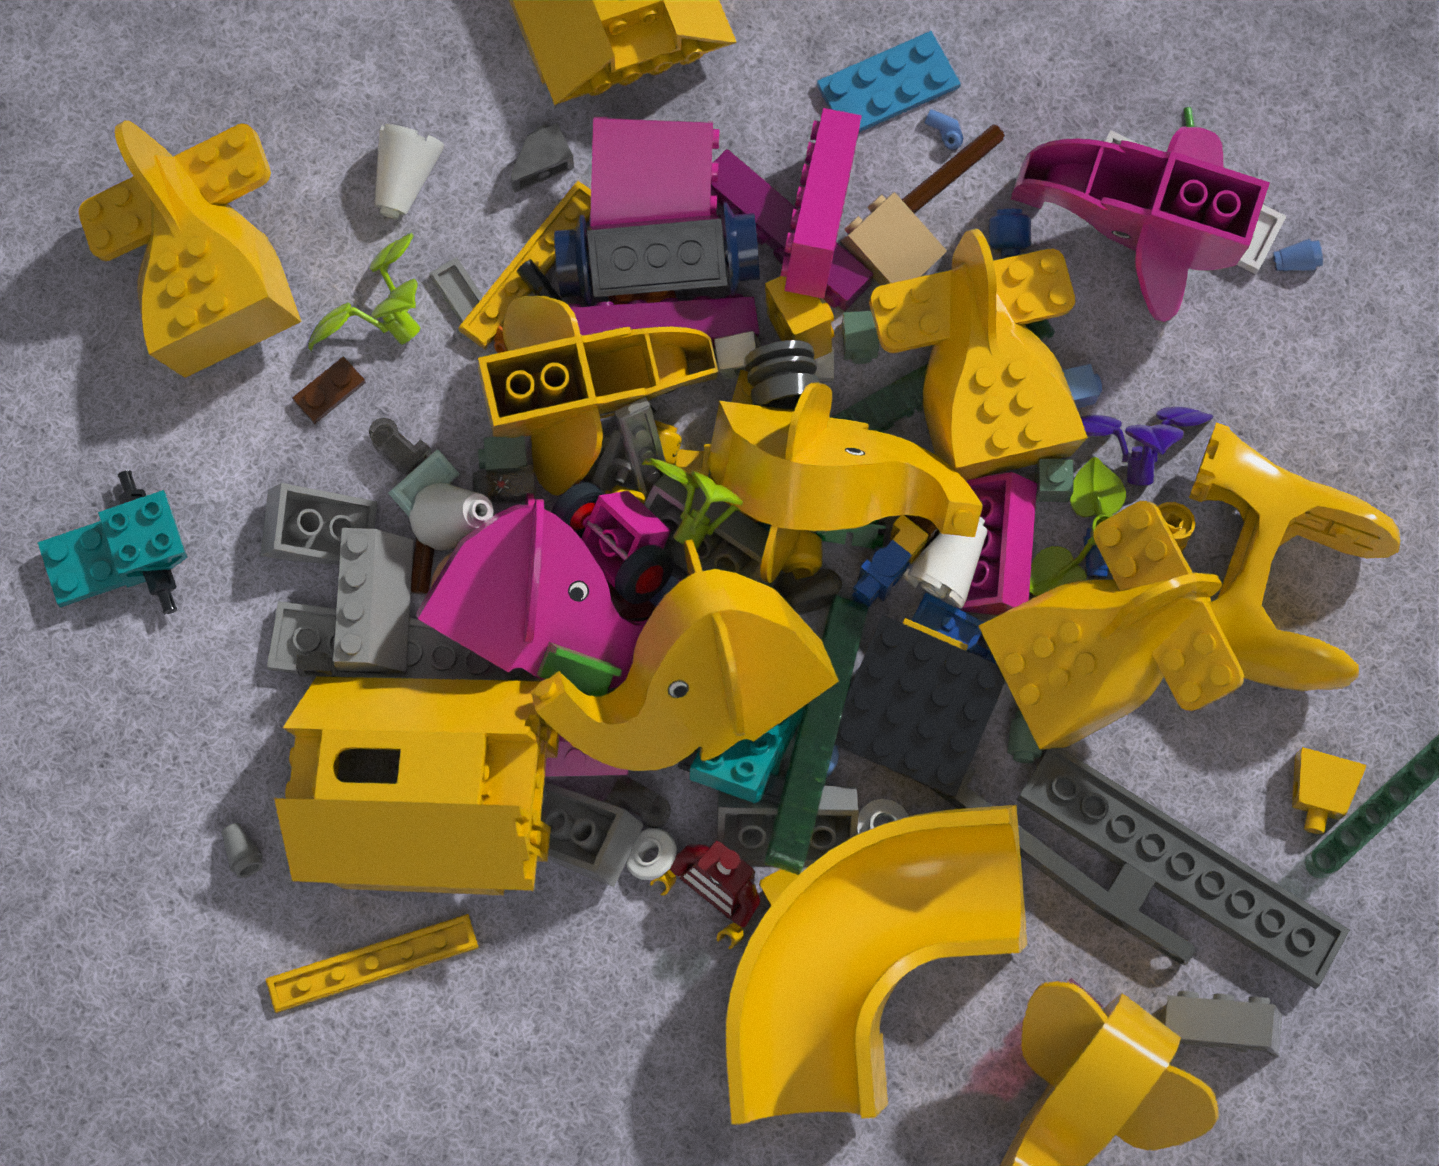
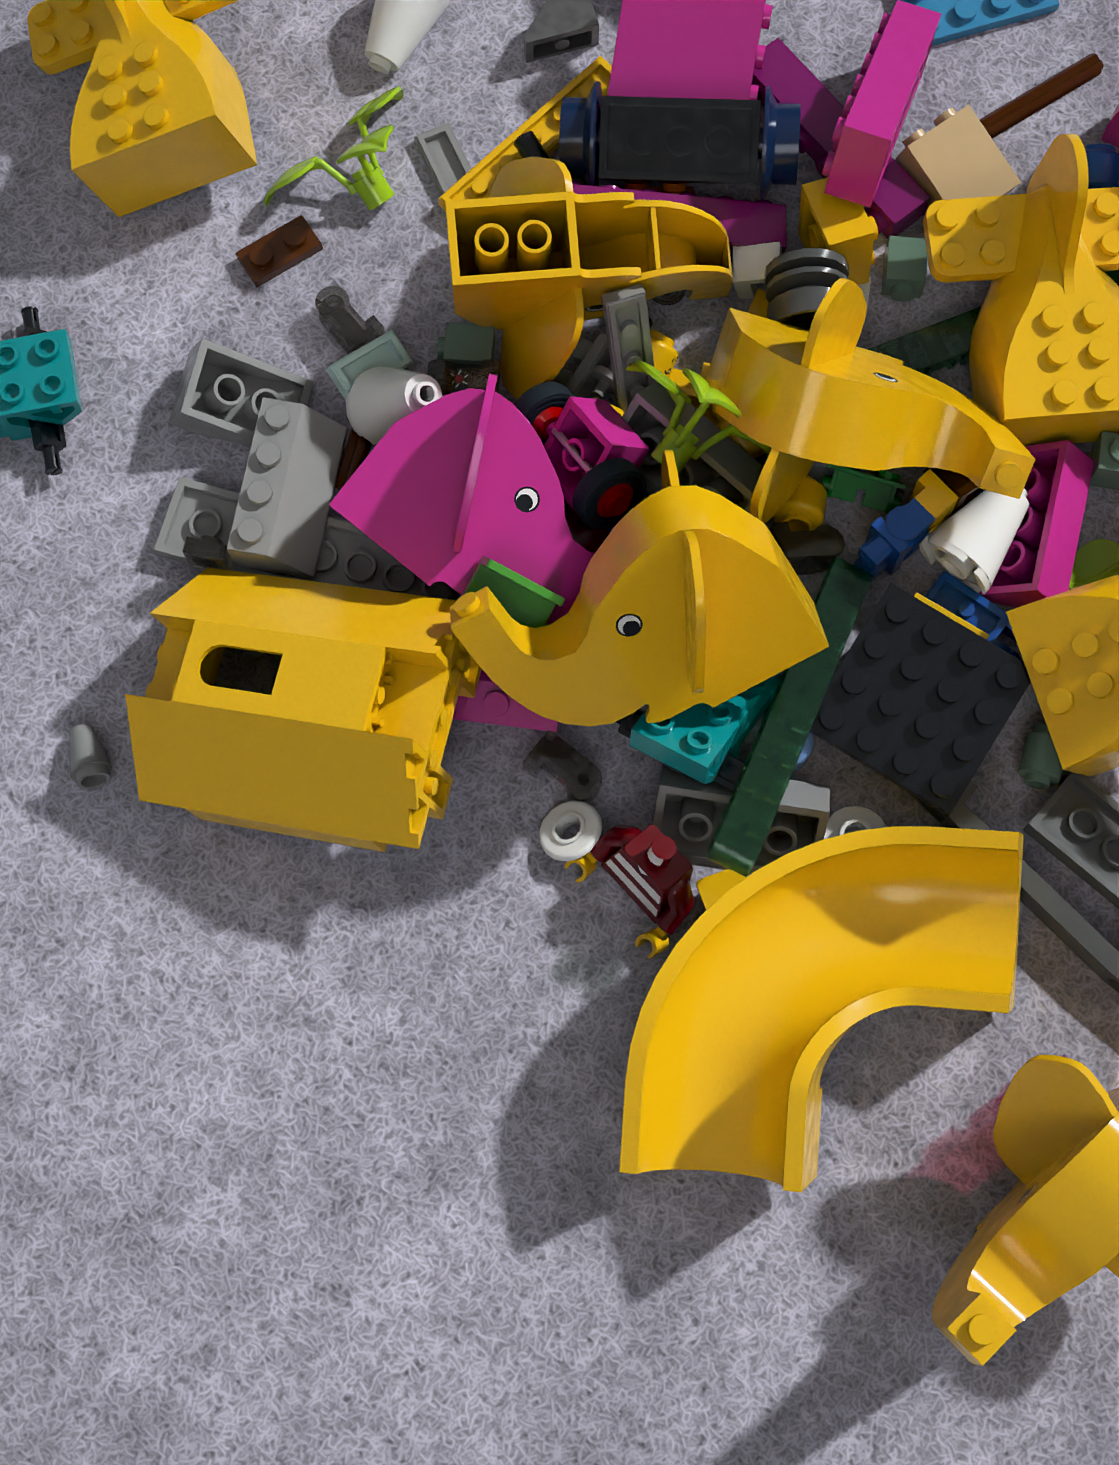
camera: 15 degrees right, 0 degrees up
(371, 963) = (219, 912): yellow tile -> none
(588, 833) = (498, 795): light grey slope -> none
(948, 127) = (1038, 52): medium blue arm -> none

